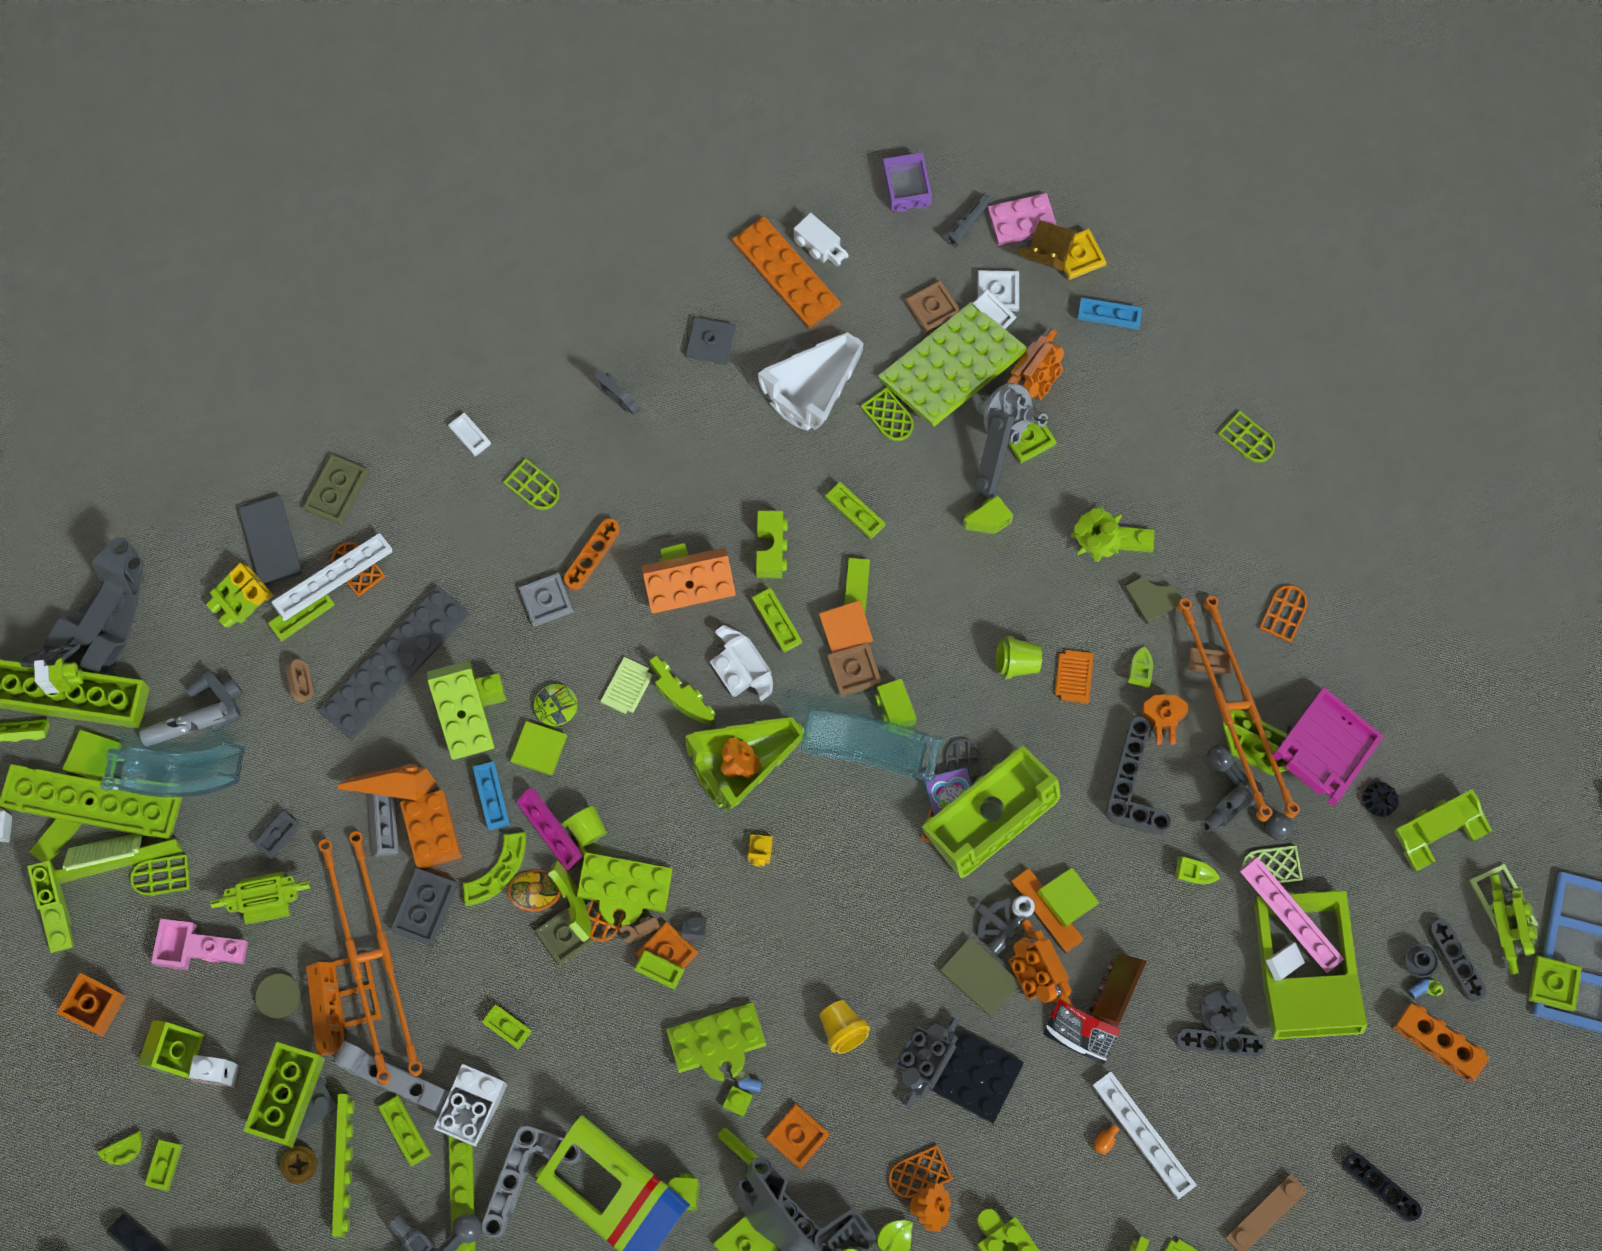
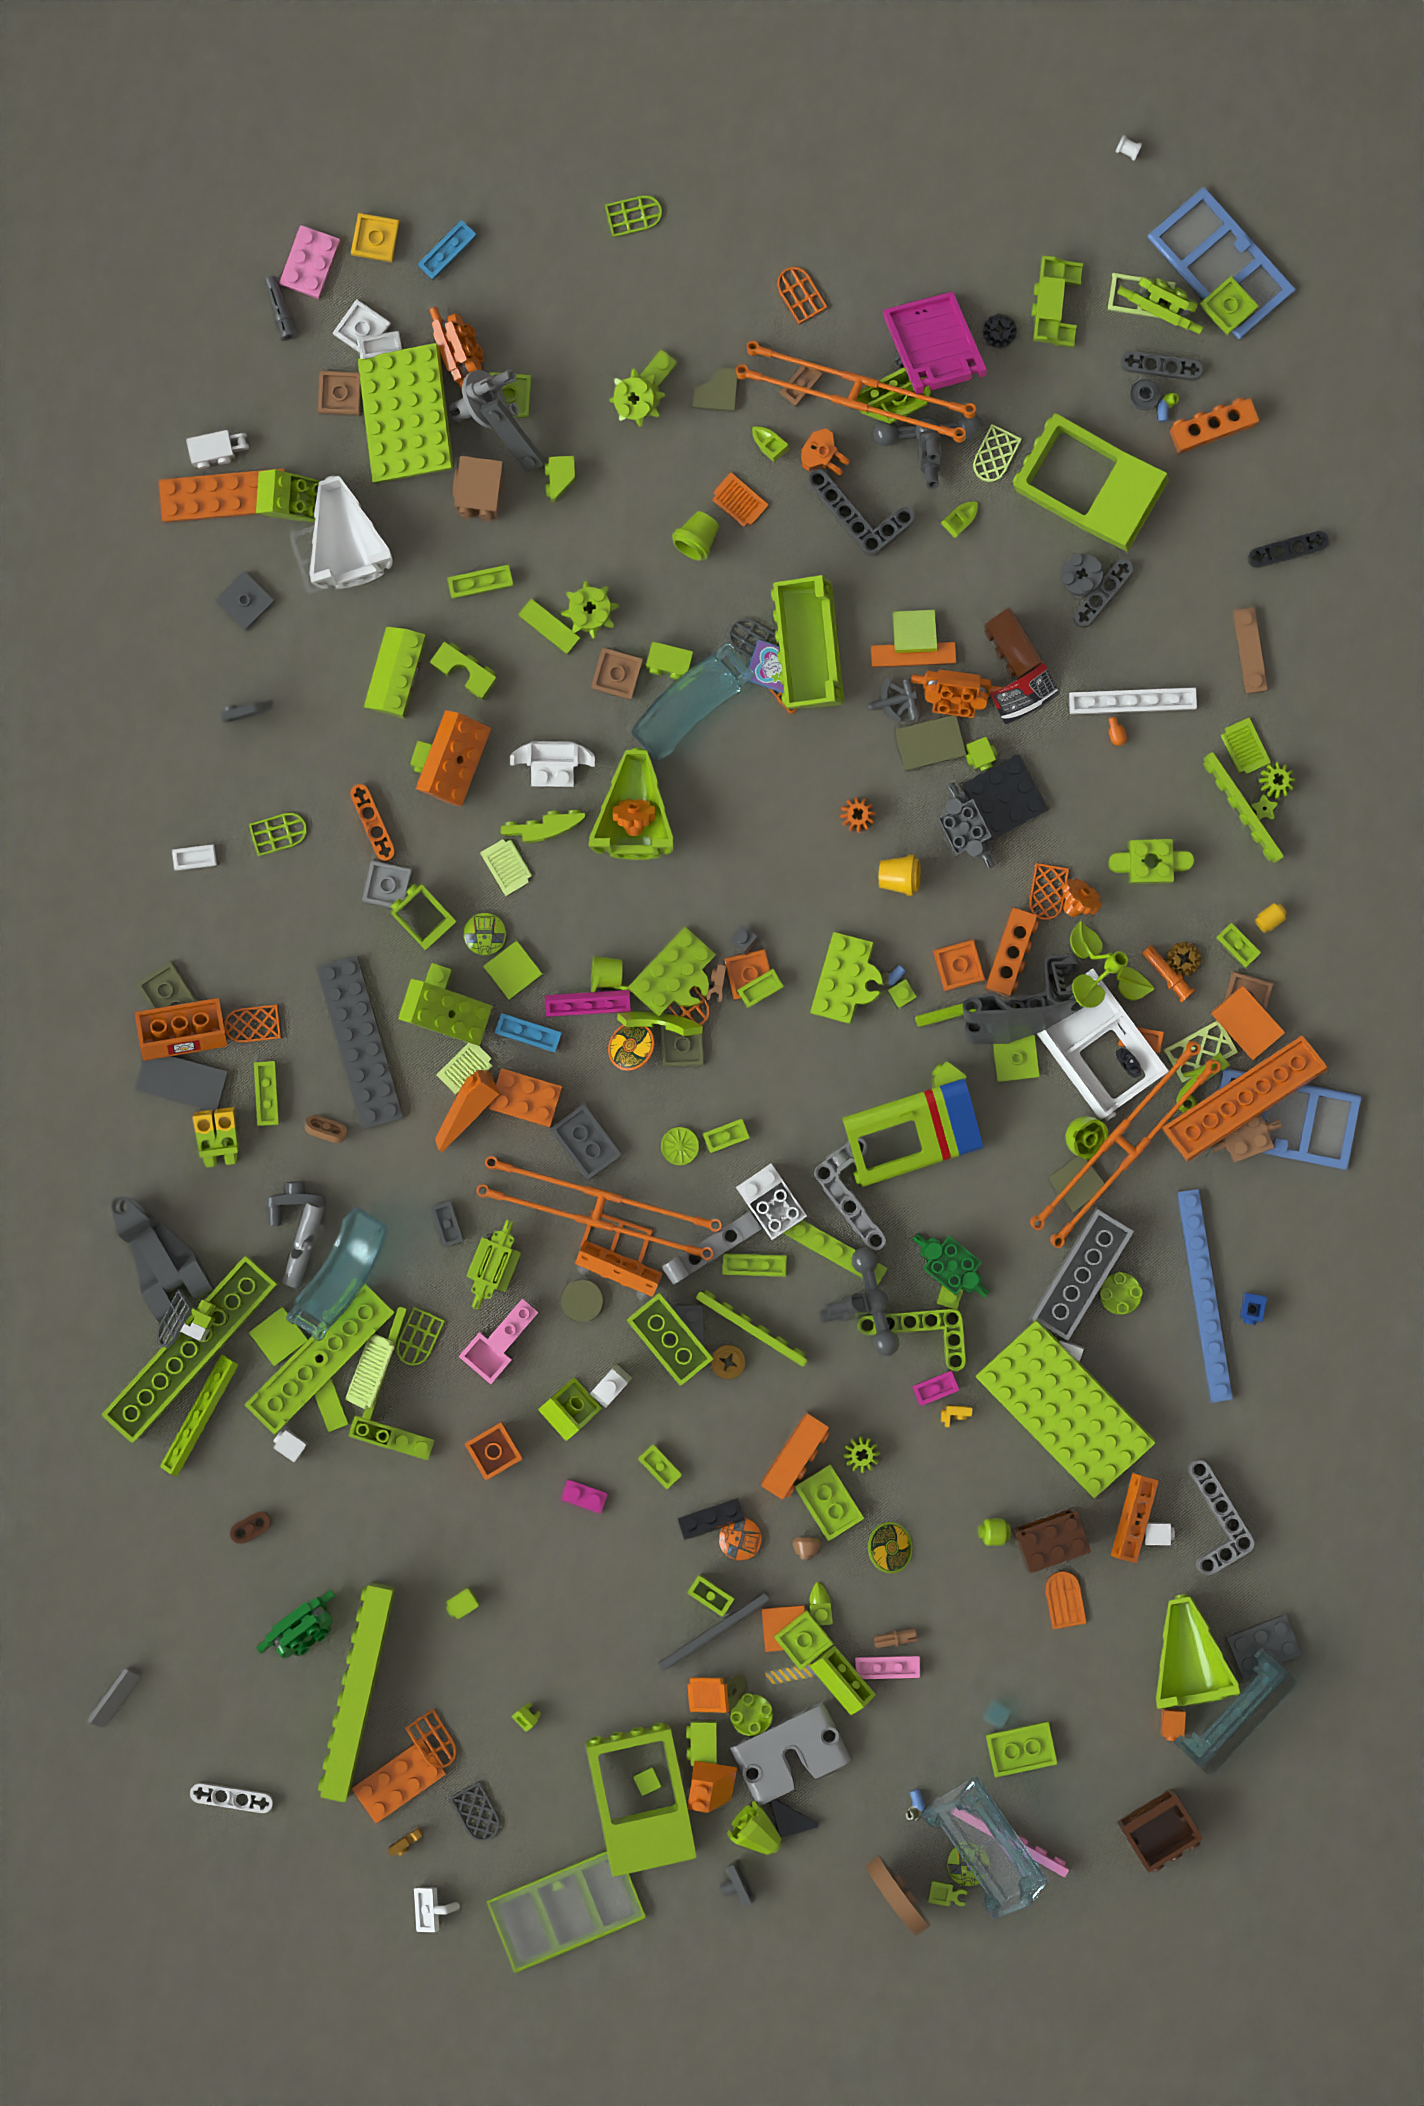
camera: 60 degrees left, 15 degrees up
(97, 1114) = (584, 1496): none -> dark pink plate
(122, 1150) = (626, 1492): lime tile -> none
(312, 510) = (180, 1029): none -> orange slope
(331, 577) = (253, 1048): white plate -> none
(382, 825) = (495, 1136): light grey slope -> none
(434, 760) = (464, 1065): none -> yellowish green window
(472, 992) = (679, 1146): none -> lime wheel
(501, 874) = (597, 1064): lime tile -> none
(514, 657) = (437, 931): none -> lime window
(733, 493) = (395, 671): none -> lime slope
(760, 850) = (715, 847): yellow bracket -> none
(777, 620) = (532, 708): lime plate -> none
(817, 313) = (286, 495): none -> lime slope
(846, 627) = (577, 656): orange tile -> none
(864, 407) = (389, 484): lime window -> none
(867, 947) = (850, 812): none -> orange gear
(873, 1160) = (995, 981): none -> orange brick
(893, 623) = (590, 597): none -> lime brick
(907, 182) = (210, 336): window -> none
(931, 457) = (478, 488): none -> medium nougat brick
(992, 808) = (806, 642): clear smoke wheel -> none
(1000, 1028) = (981, 754): none -> lime brick
(1023, 900) = (898, 664): white plate -> none
(1049, 245) = (354, 258): pearl gold bracket -> none
(1285, 961) = (1076, 499): white tile -> none
(1291, 914) = (1044, 468): bright pink plate -> none

